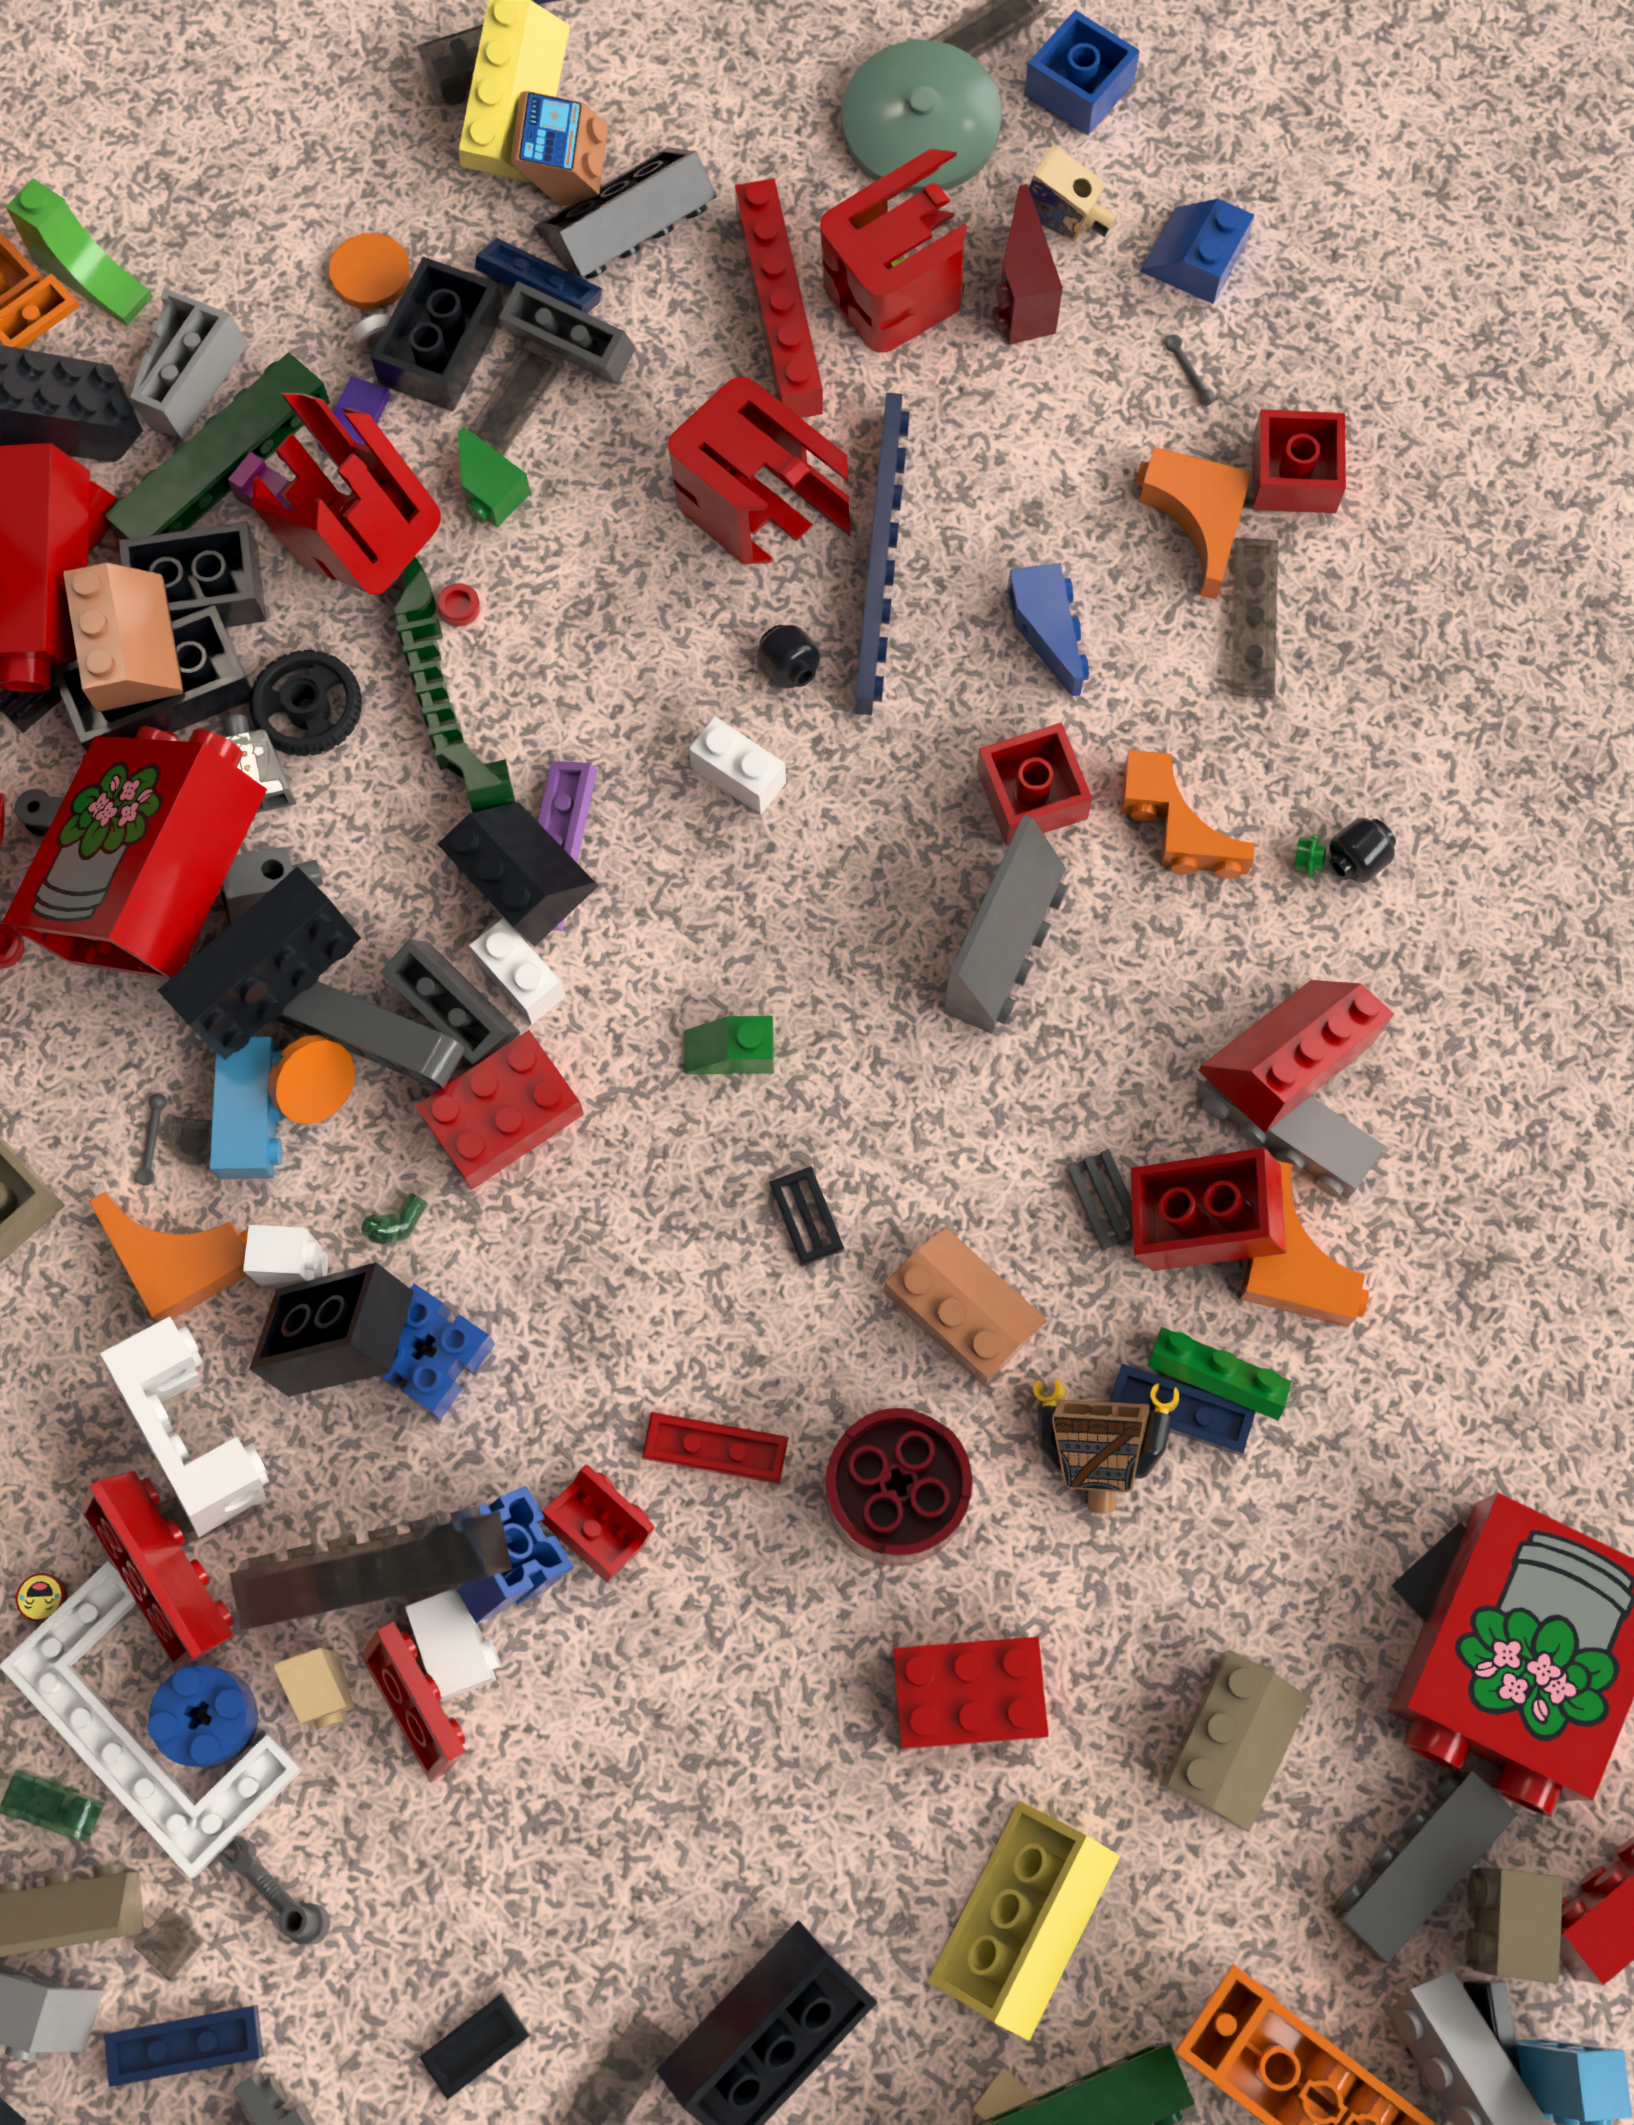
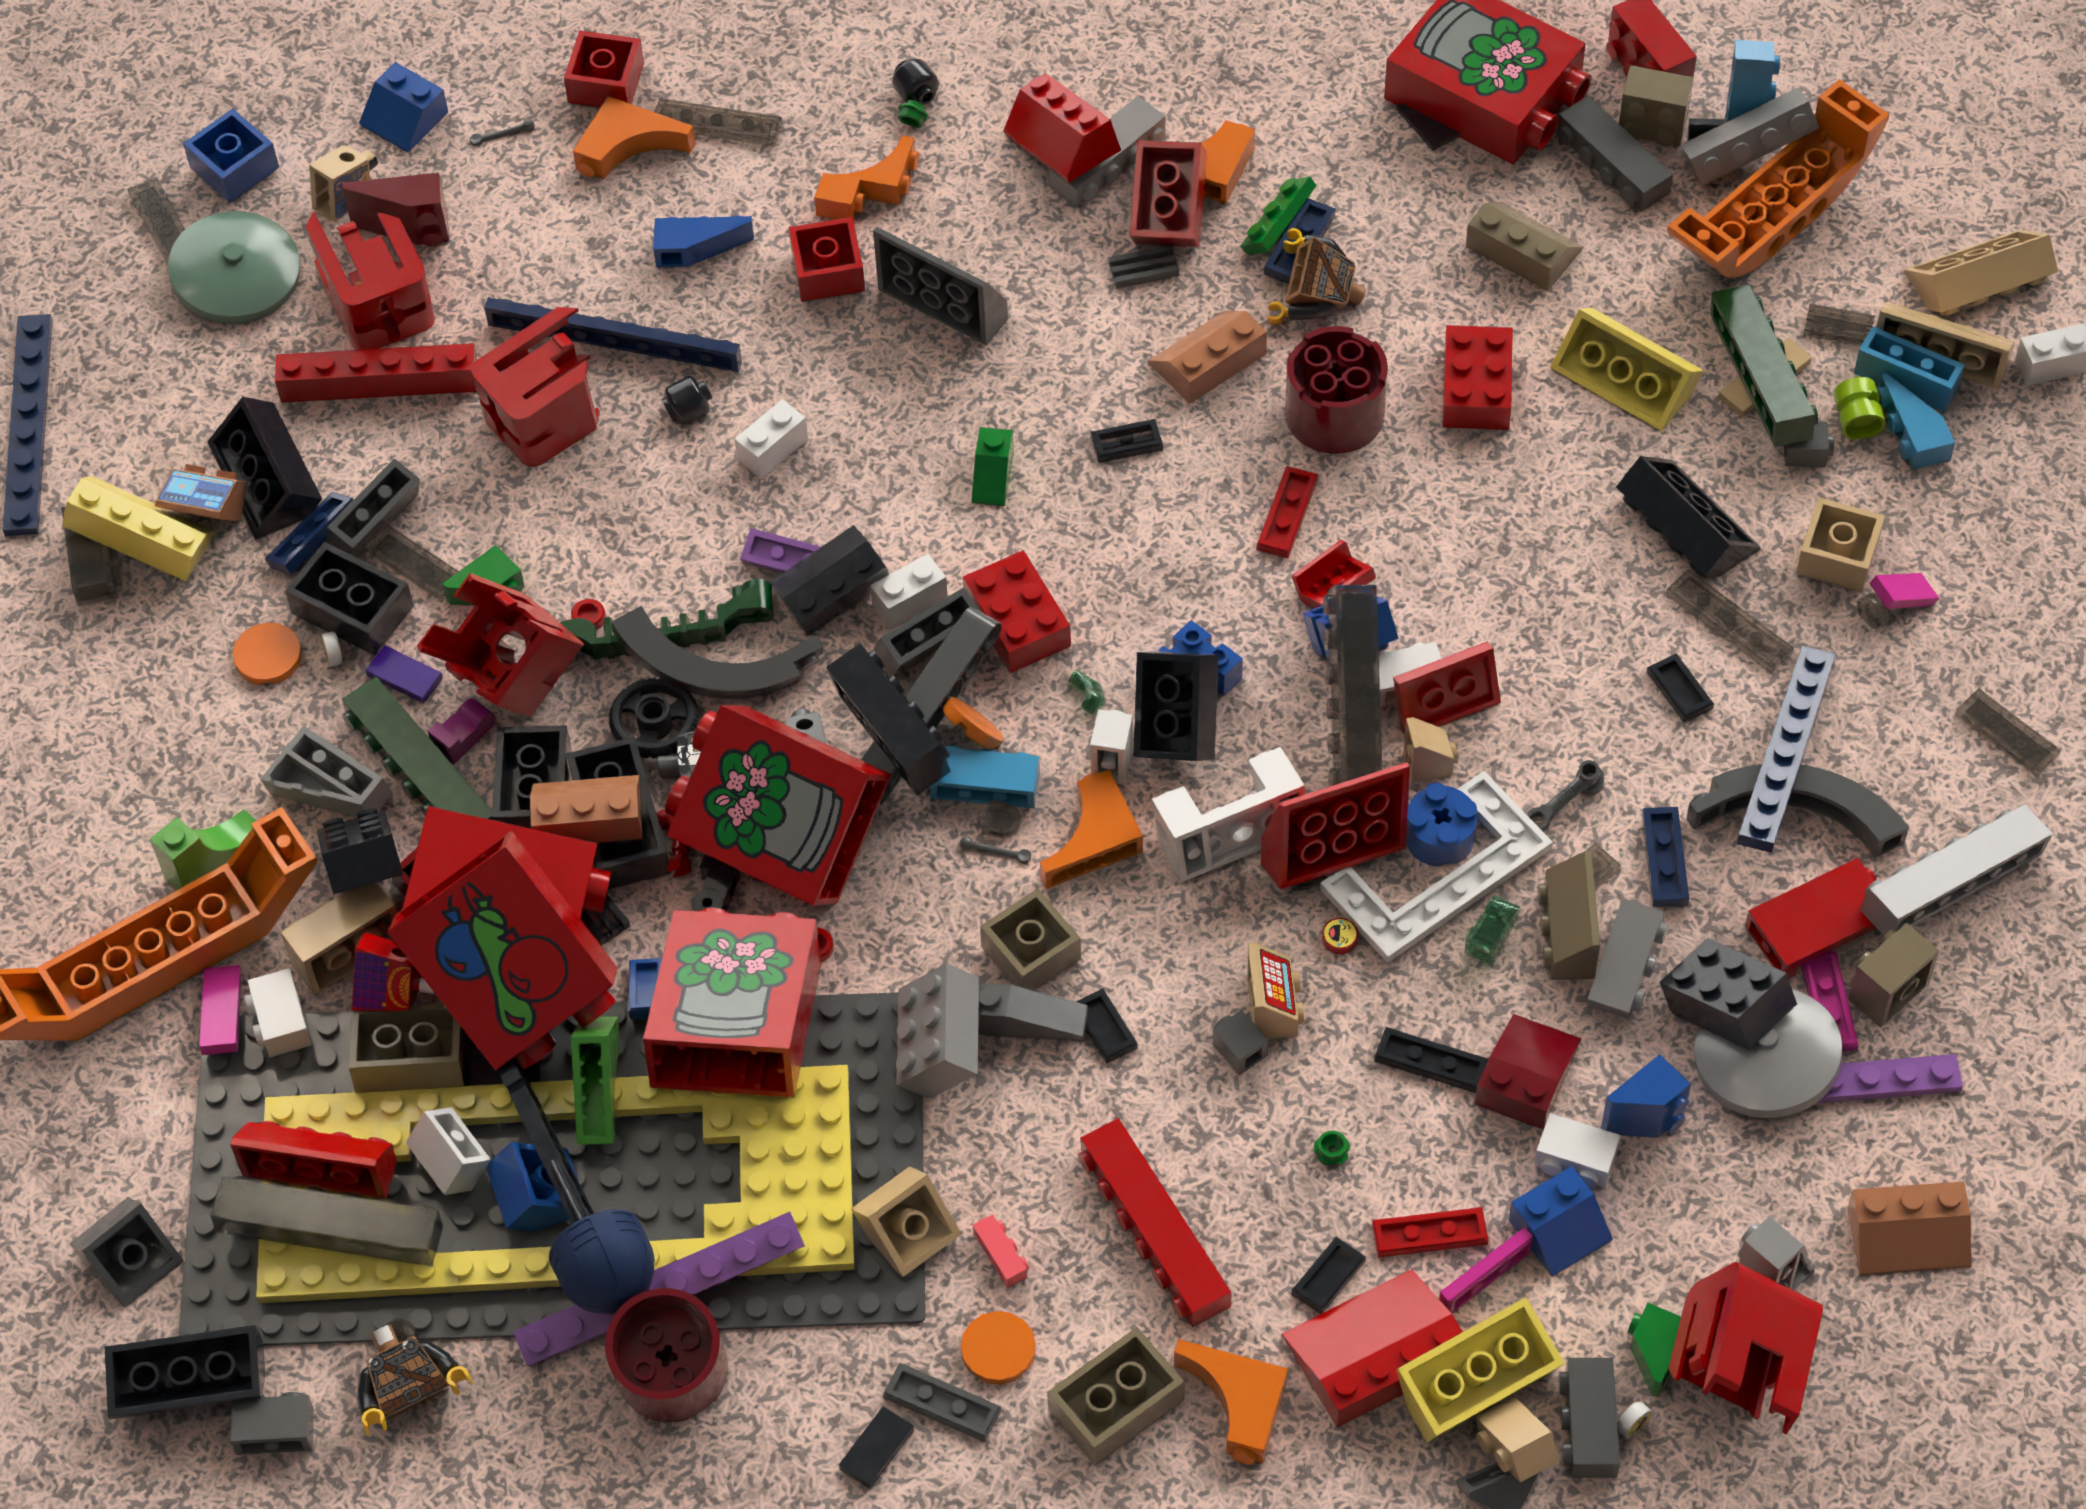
camera: 80 degrees left, 15 degrees down
(361, 742) = (706, 676): none -> dark grey arch

